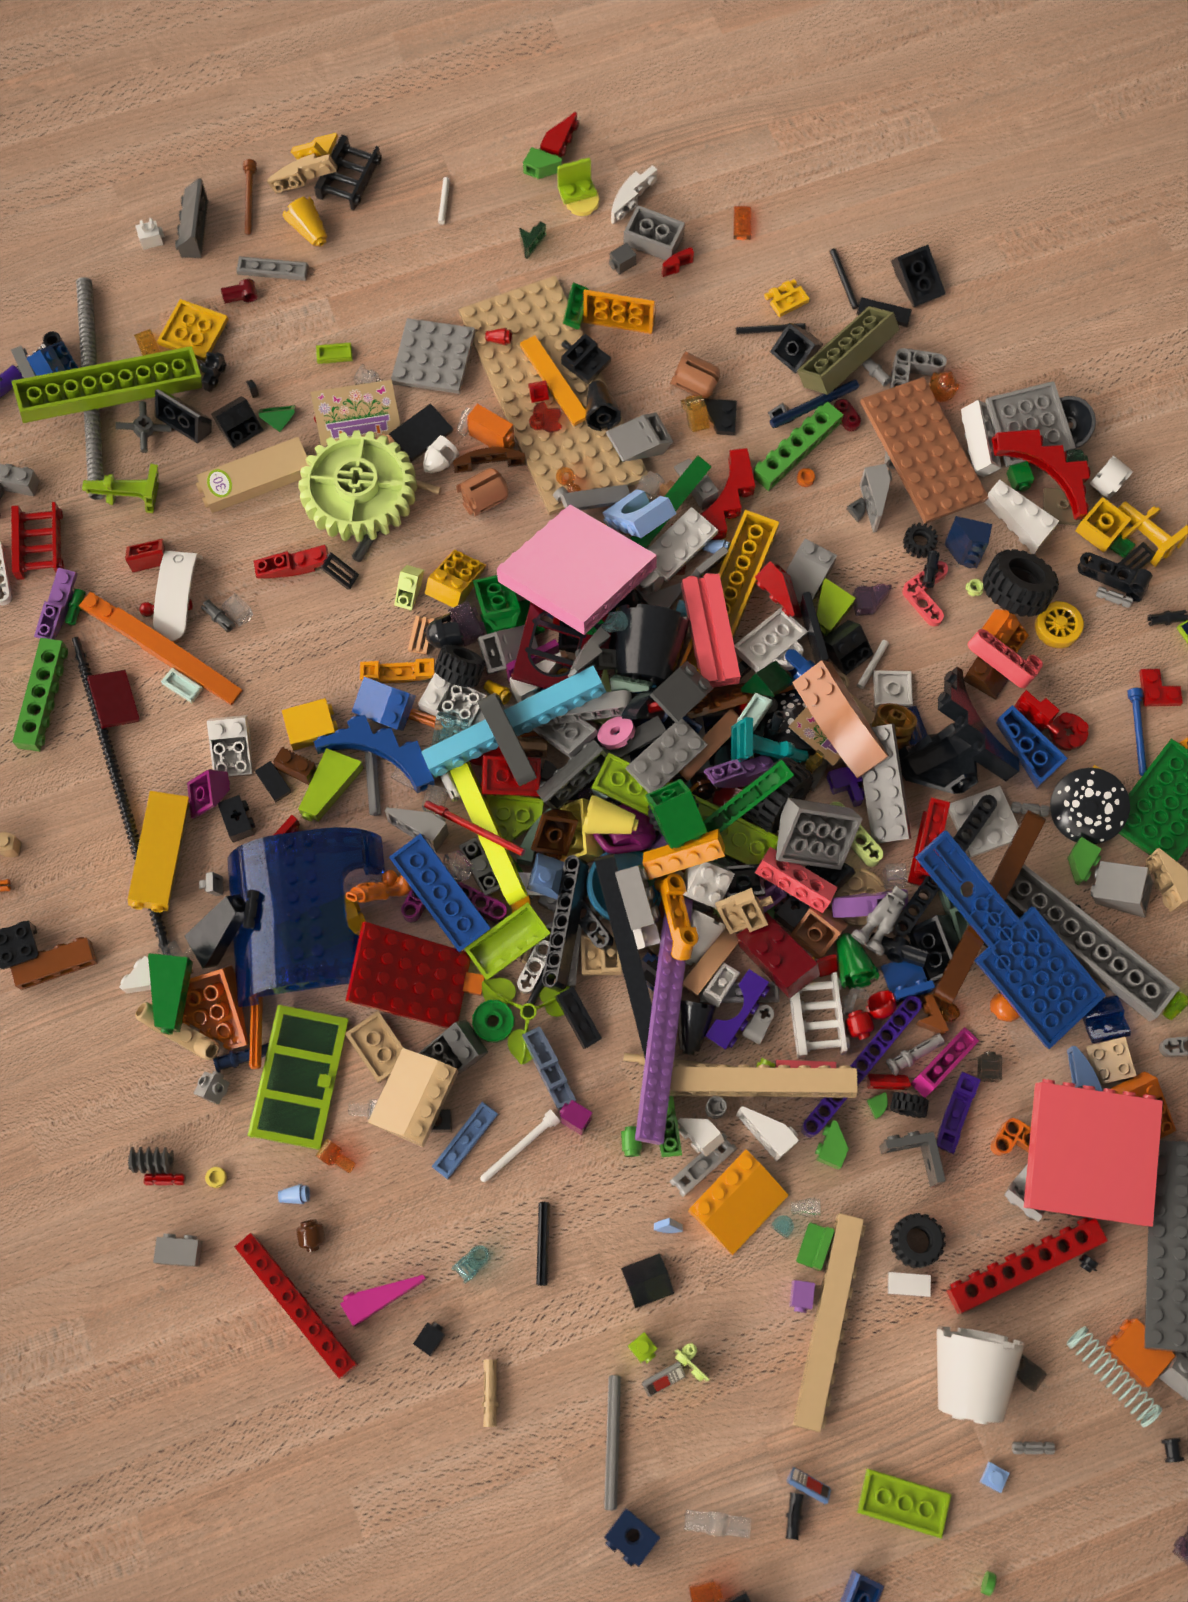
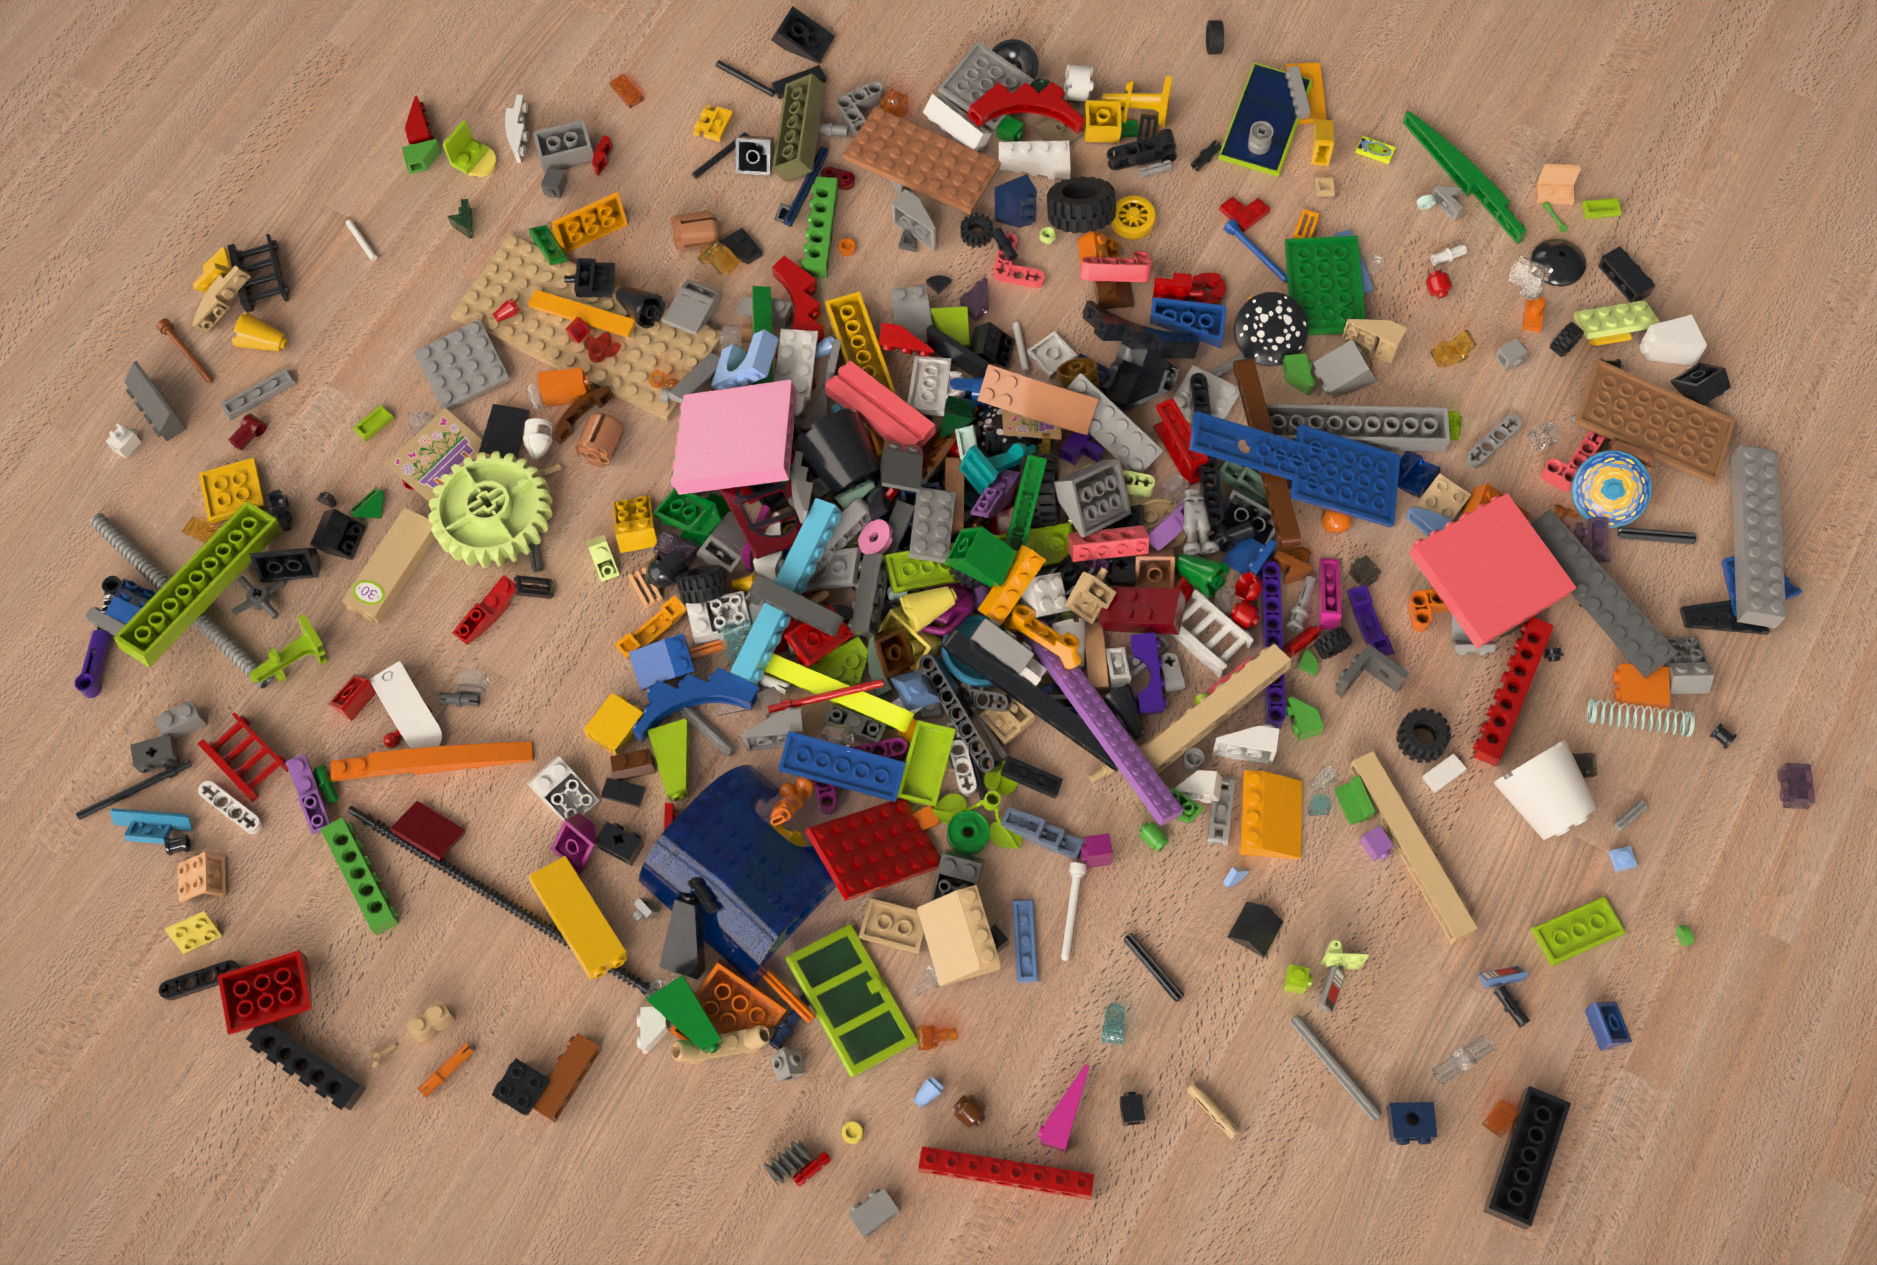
camera: 35 degrees left, 5 degrees down
(182, 685) = (477, 776): light aqua tile -> none
(615, 622) = (804, 452): clear light blue brick -> none
(852, 561) = (938, 283): none -> black tile

